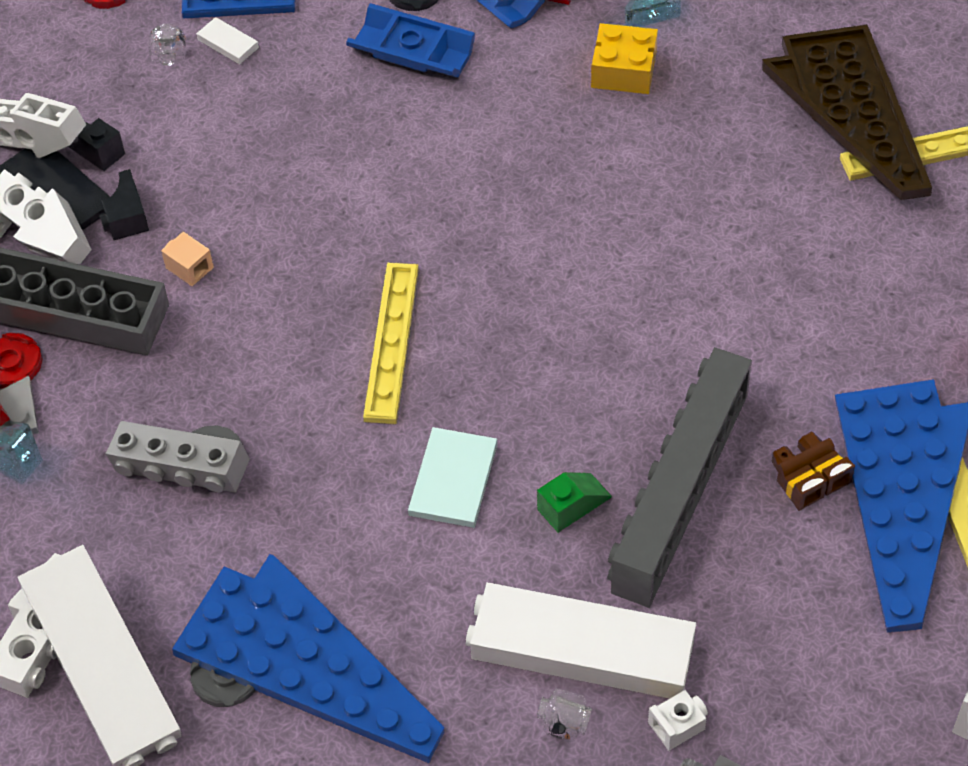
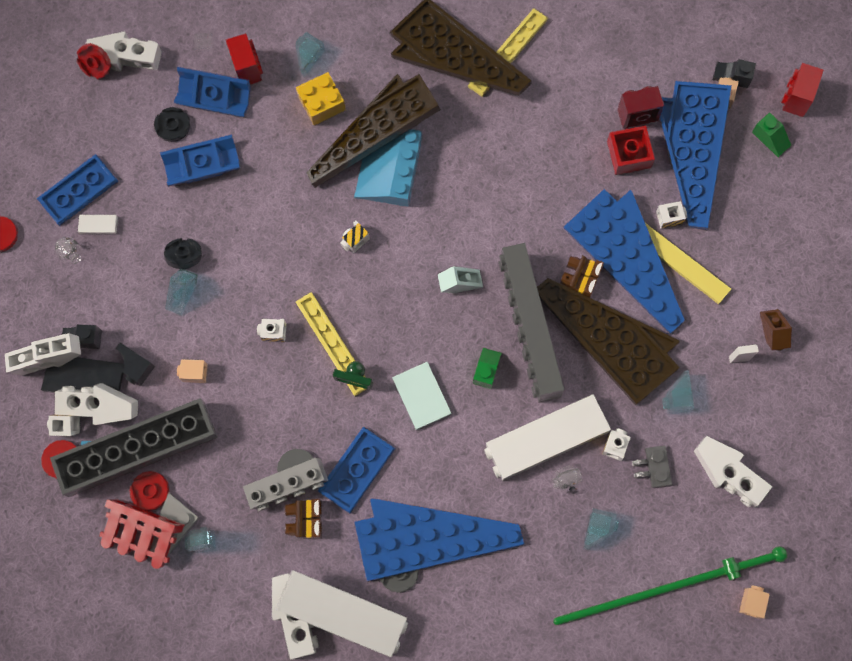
camera: 35 degrees left, 20 degrees up
(165, 519) = (305, 510): none -> reddish brown hips
(256, 162) = (180, 290): none -> clear light blue slope
(285, 509) = (356, 470): none -> blue tile
(296, 125) = (182, 253): none -> black tile
(328, 275) = (277, 334): none -> white brick
(380, 387) = (353, 376): none -> dark green tile
(529, 236) = (354, 238): none -> brick
(628, 367) = (459, 279): none -> light aqua slope
(652, 185) = (390, 170): none -> dark azure slope
(689, 122) = (384, 119): none -> dark brown wing
(796, 599) = (622, 346): none -> dark brown wing
(829, 716) = (679, 397): none -> clear light blue slope

